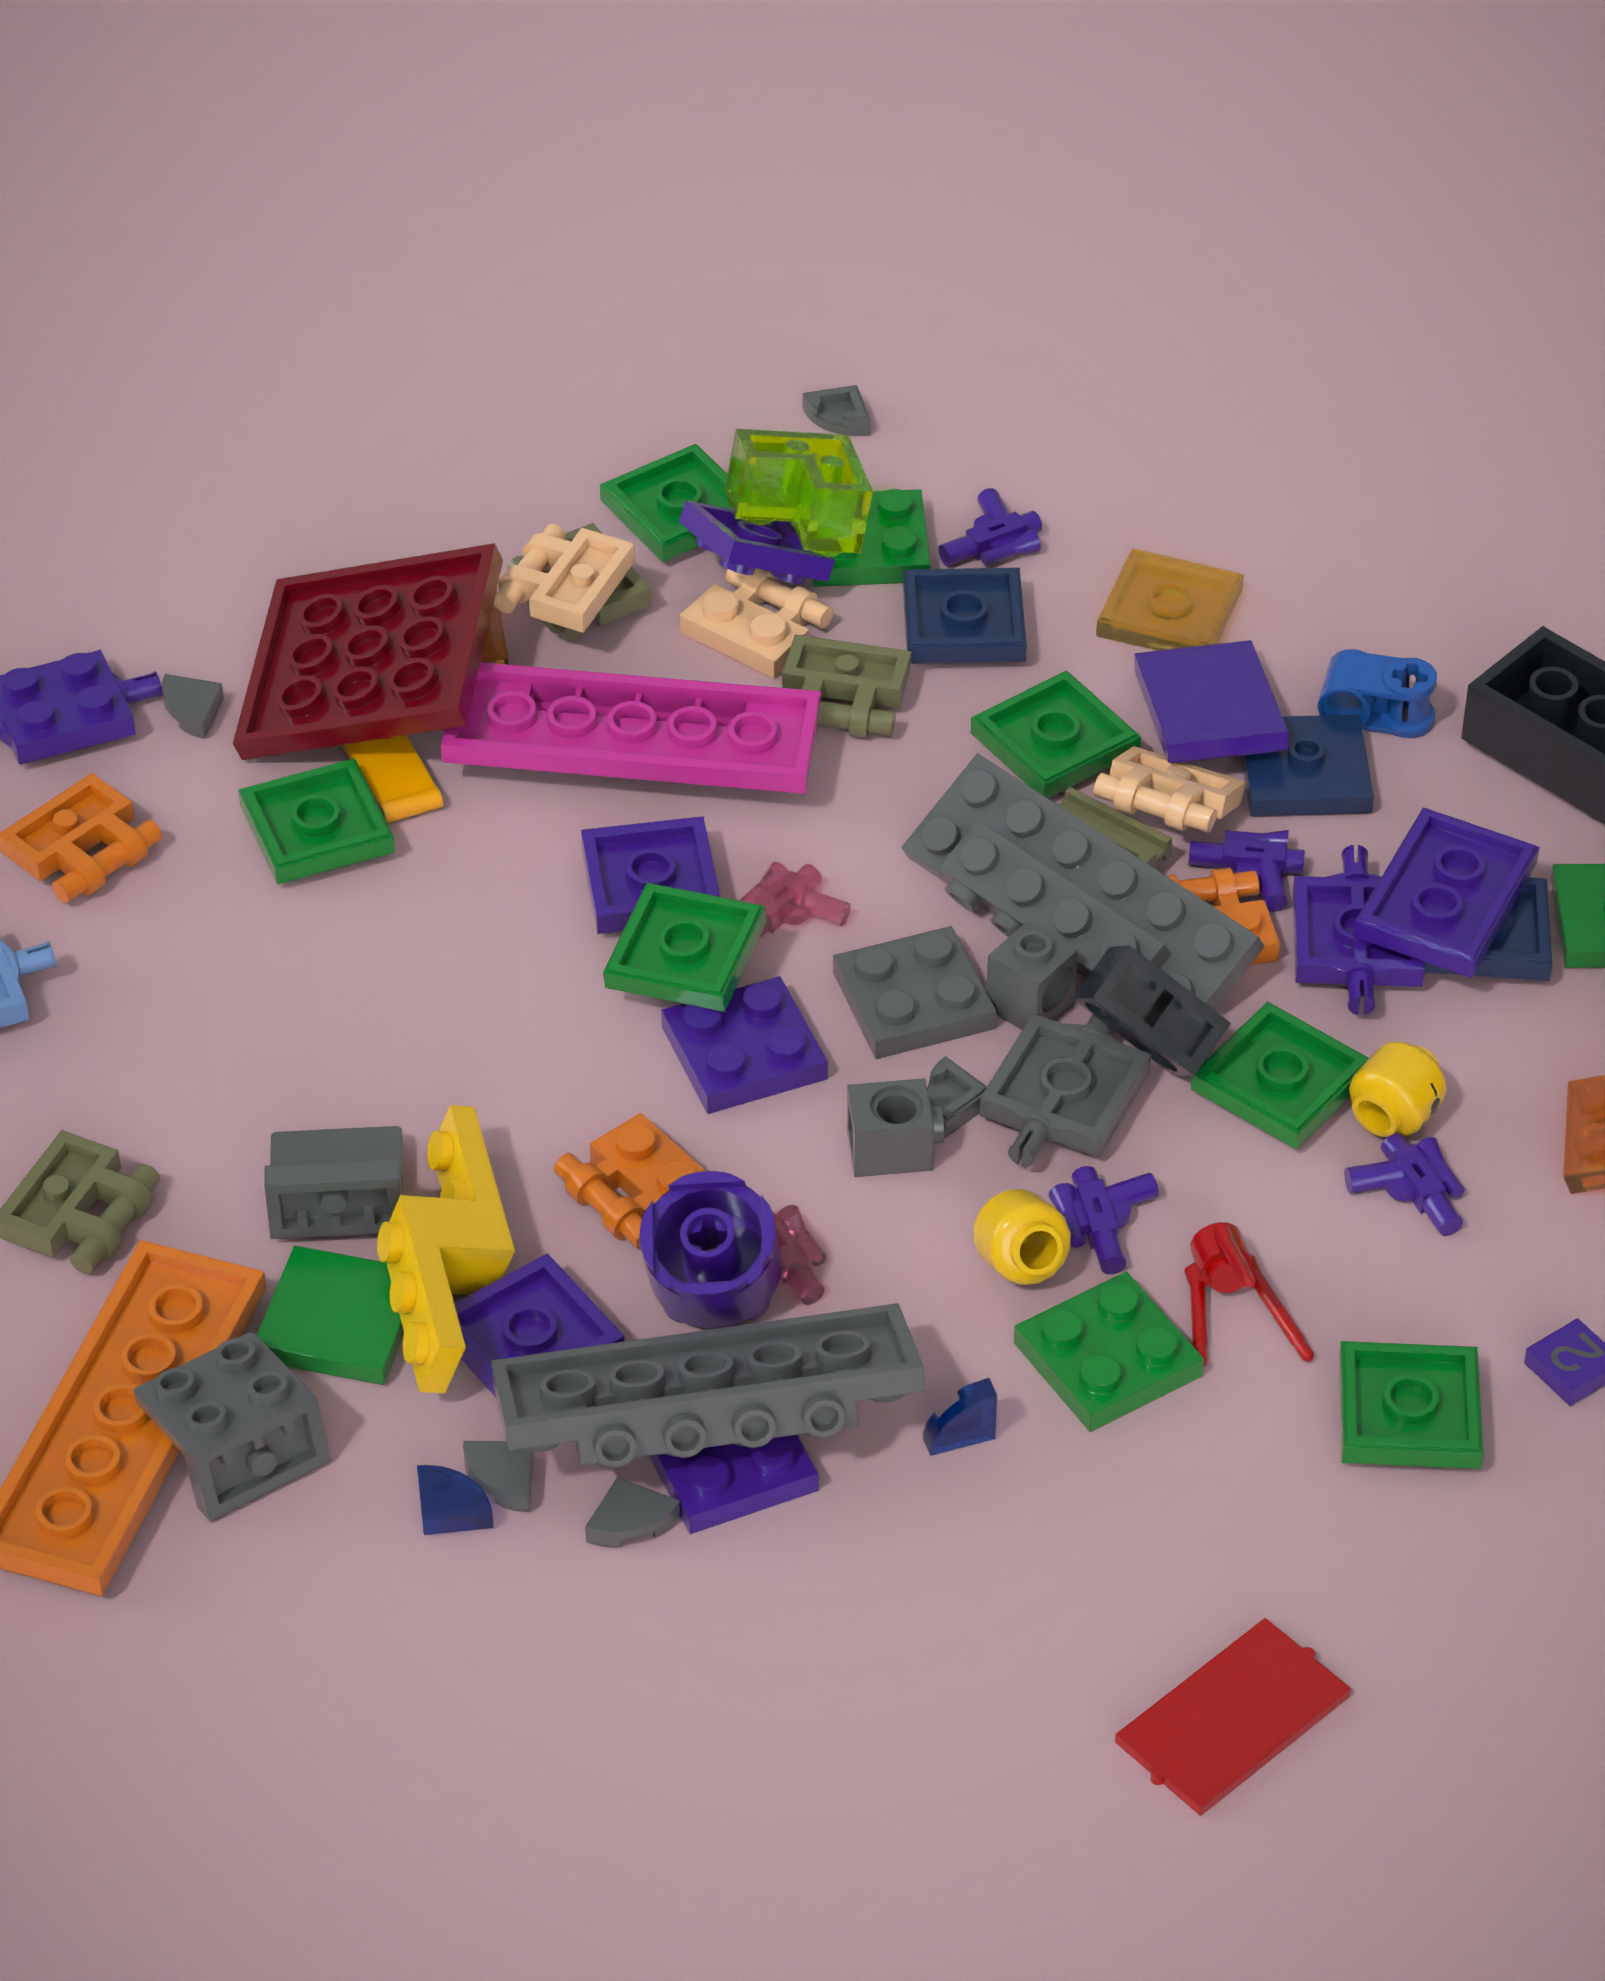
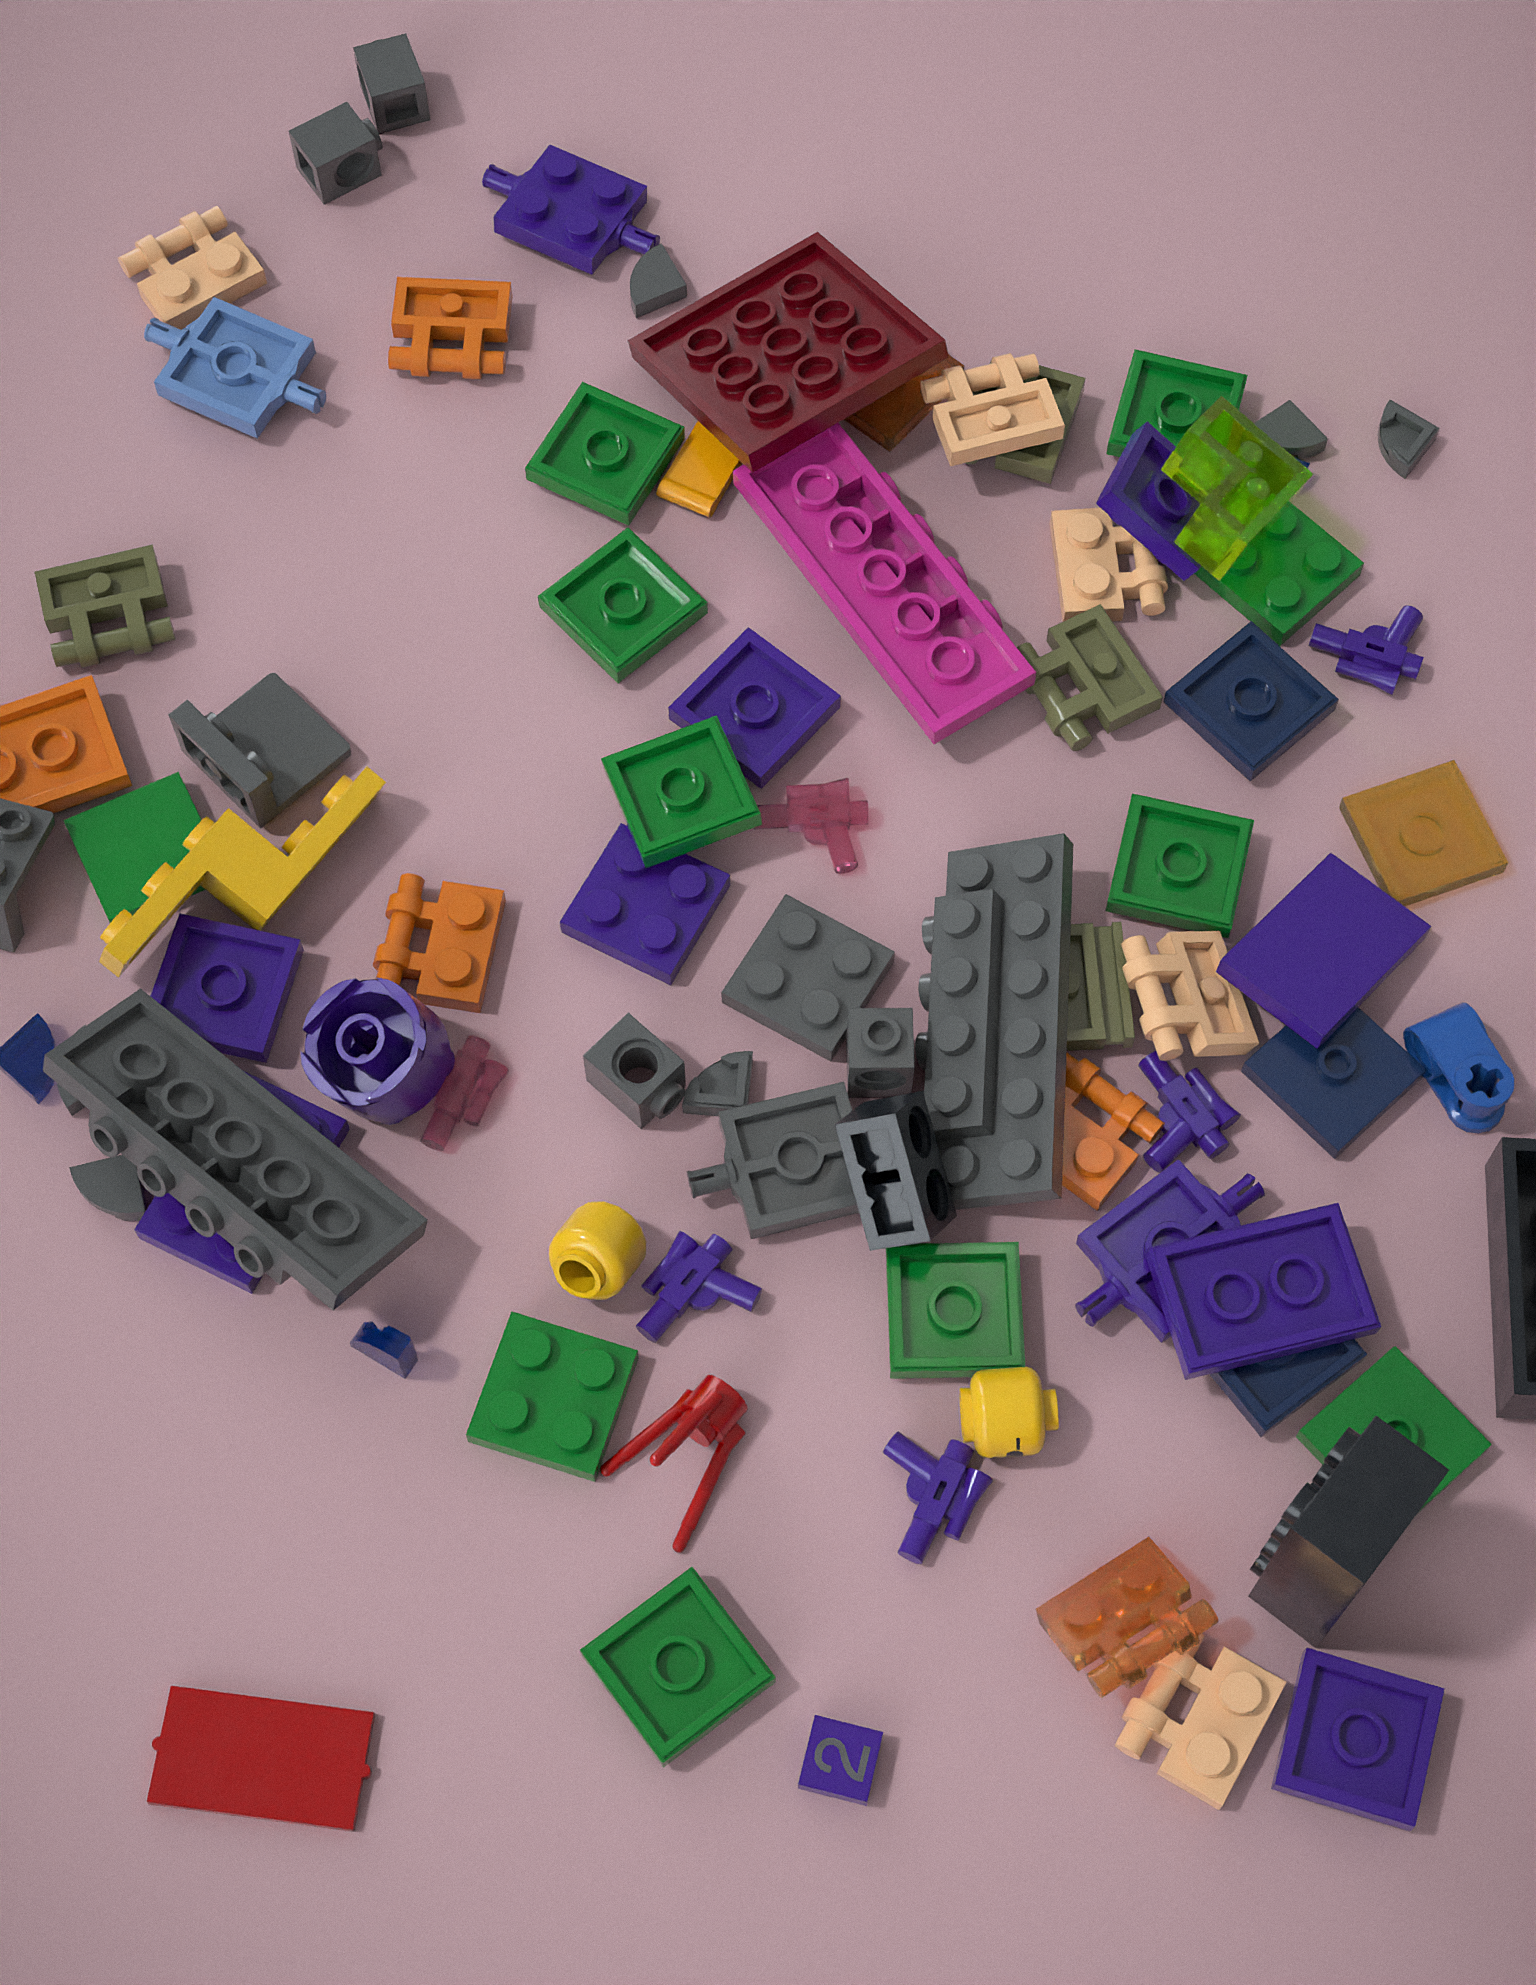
camera: 50 degrees right, 20 degrees up
(466, 893) = (623, 604): none -> green plate

